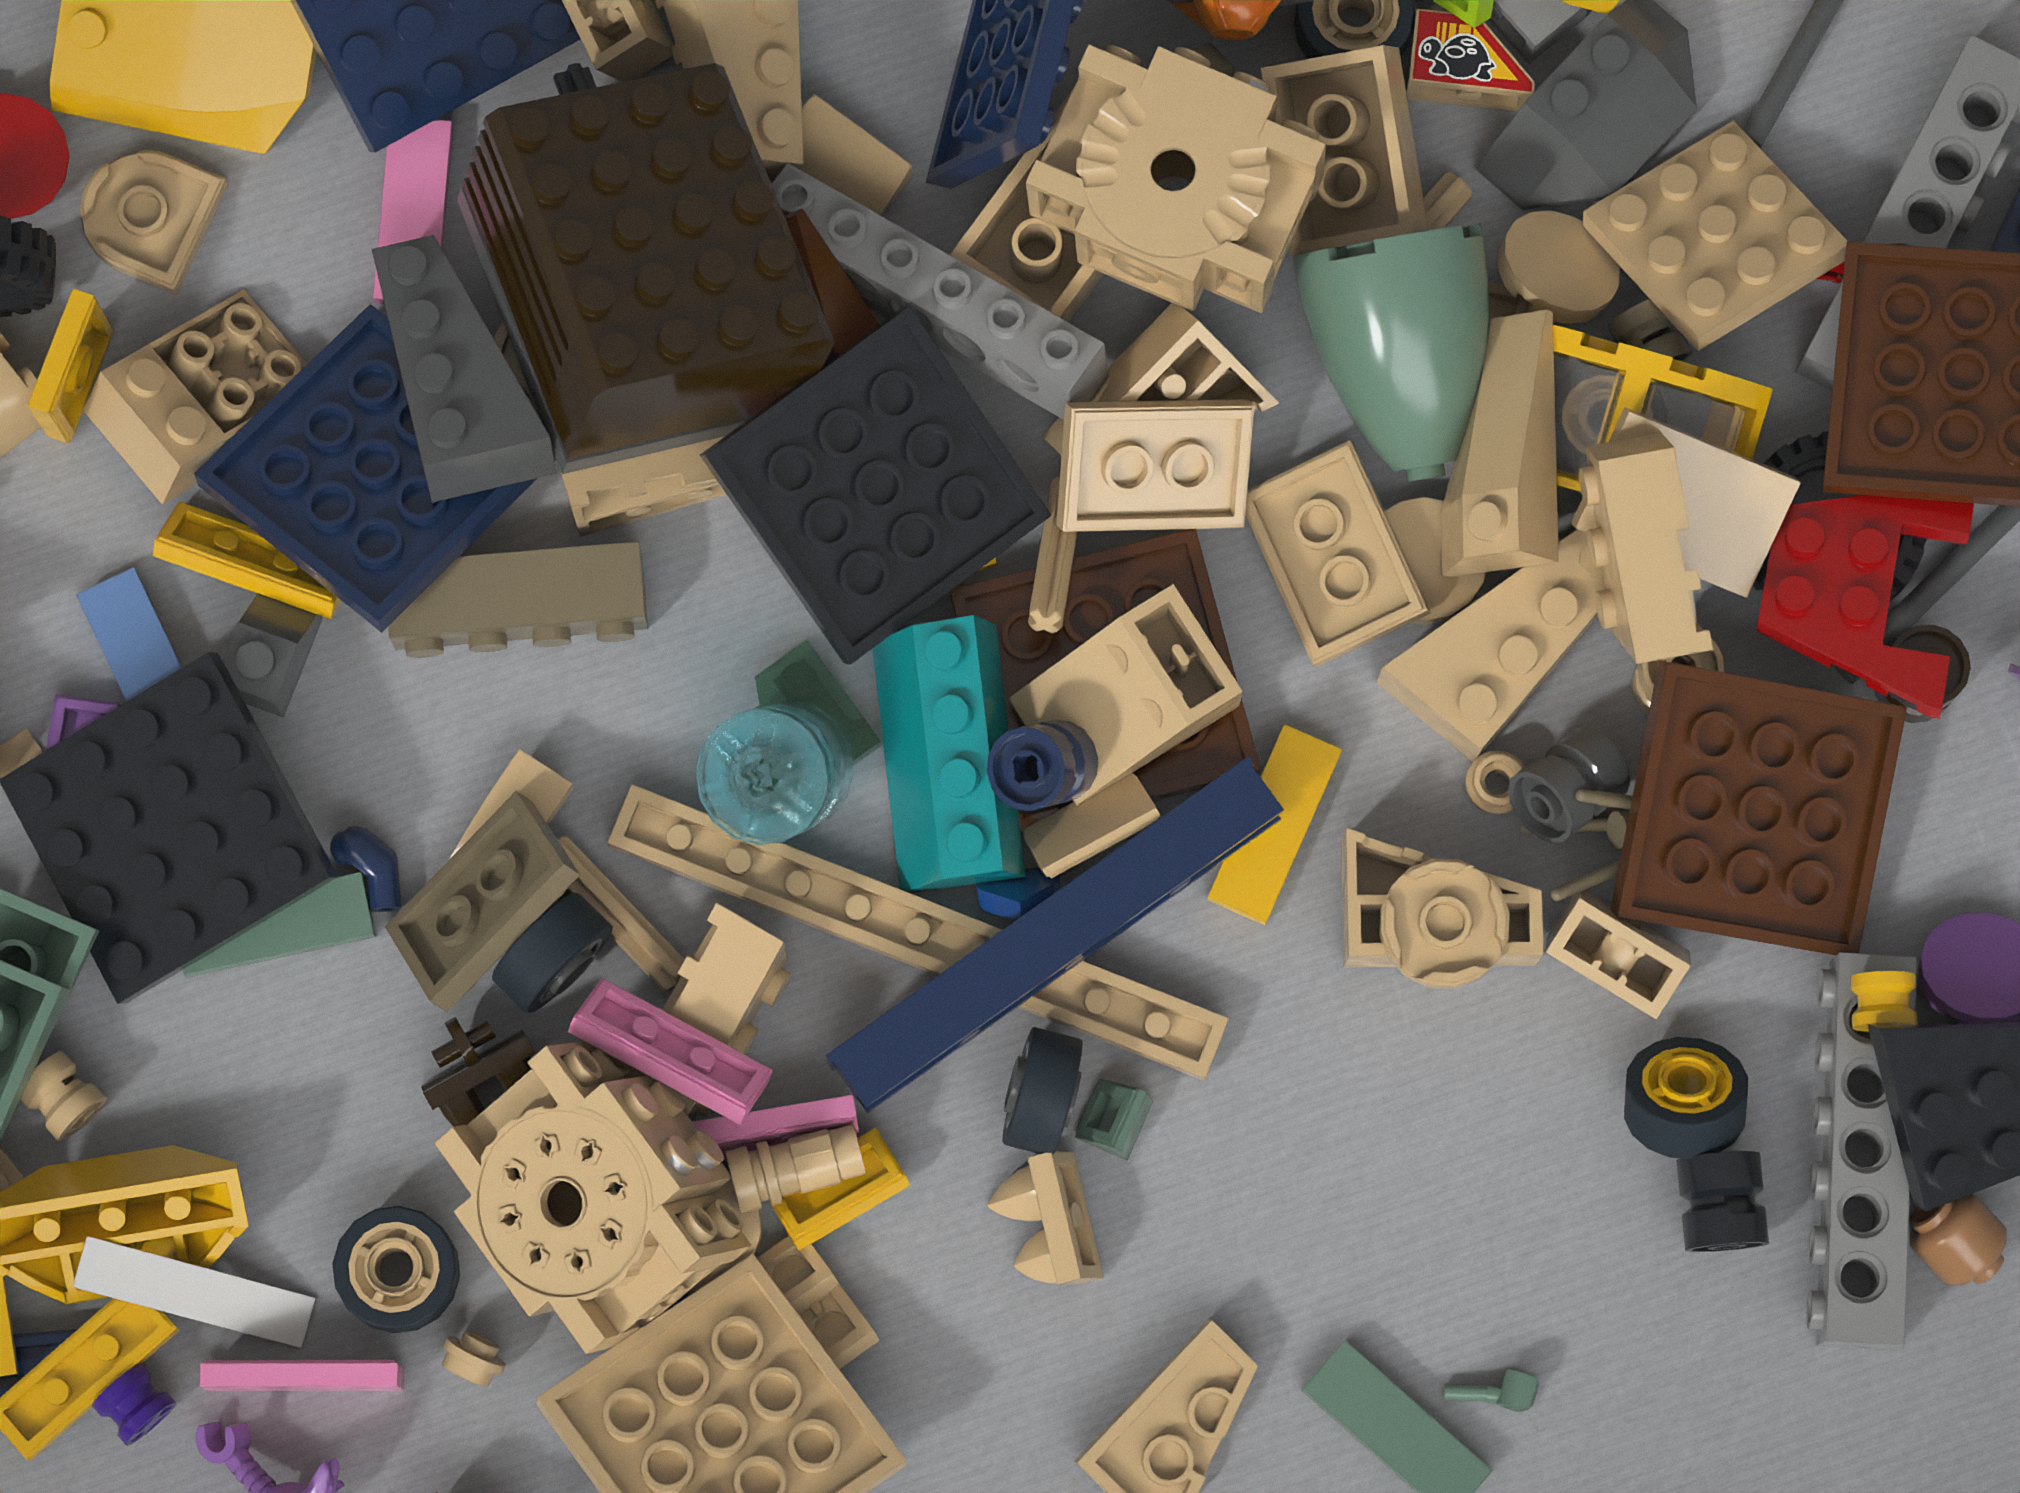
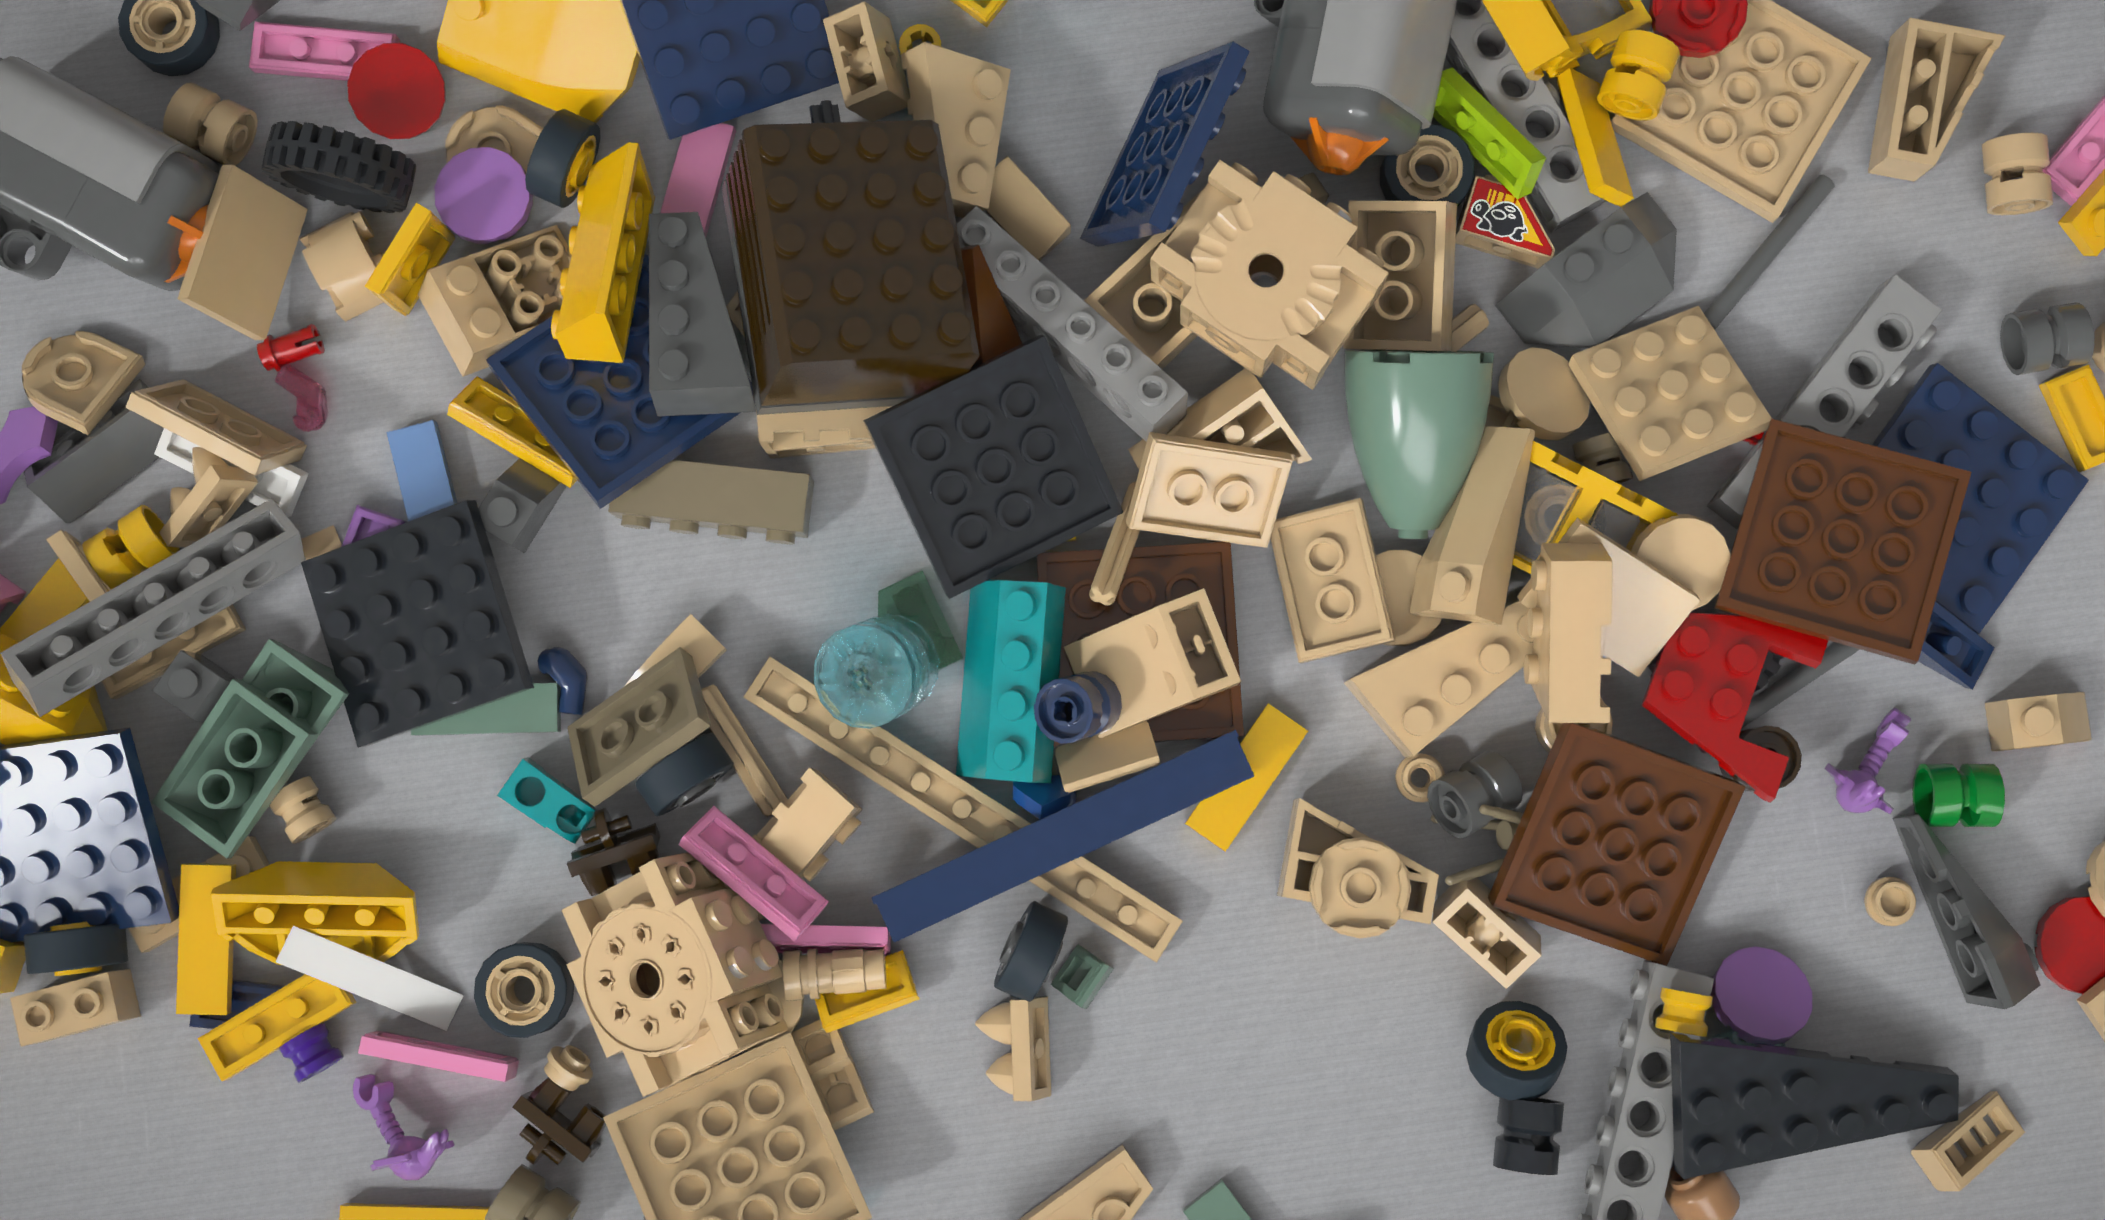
camera: 15 degrees right, 5 degrees up
(146, 267) = (483, 195): none -> medium lavender tile
(242, 201) = (562, 158): none -> black wheel
(322, 316) = (605, 258): none -> yellow slope
(380, 1023) = (547, 800): none -> teal leg
(450, 1414) = (575, 1136): none -> dark brown hips
(1774, 427) = (1687, 552): none -> tan tile

